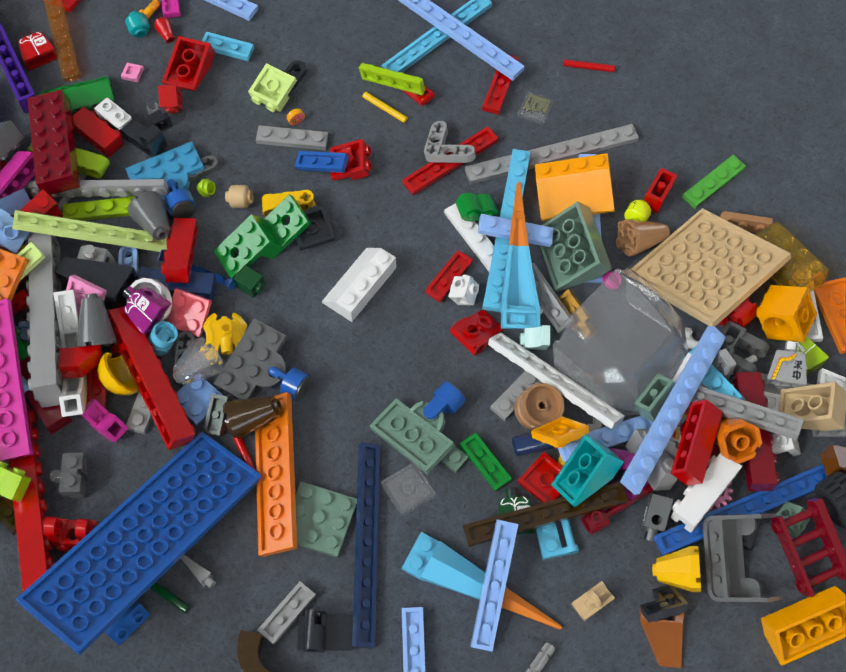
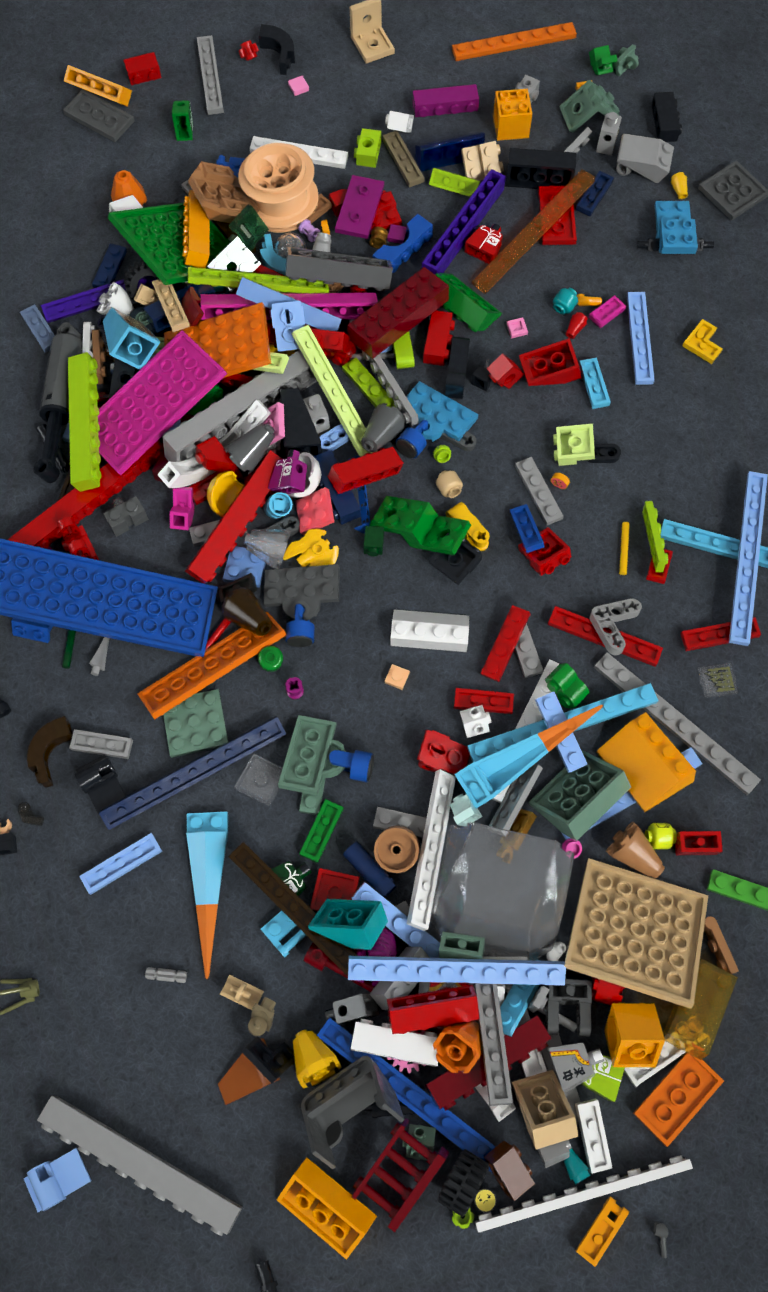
camera: 60 degrees right, 5 degrees up
(113, 113) = (461, 338): white bracket -> none
(303, 420) = (270, 658): none -> green head
(345, 411) = (295, 693): none -> magenta bush
(384, 331) = (397, 677): none -> light nougat plate
(411, 232) = (505, 643): none -> red plate
(422, 223) = (527, 655): none -> light grey plate
(494, 585) = (207, 897): light blue plate -> none
(560, 432) = (373, 878): light orange plate -> none
(624, 592) = (262, 1017): none -> dark tan hips

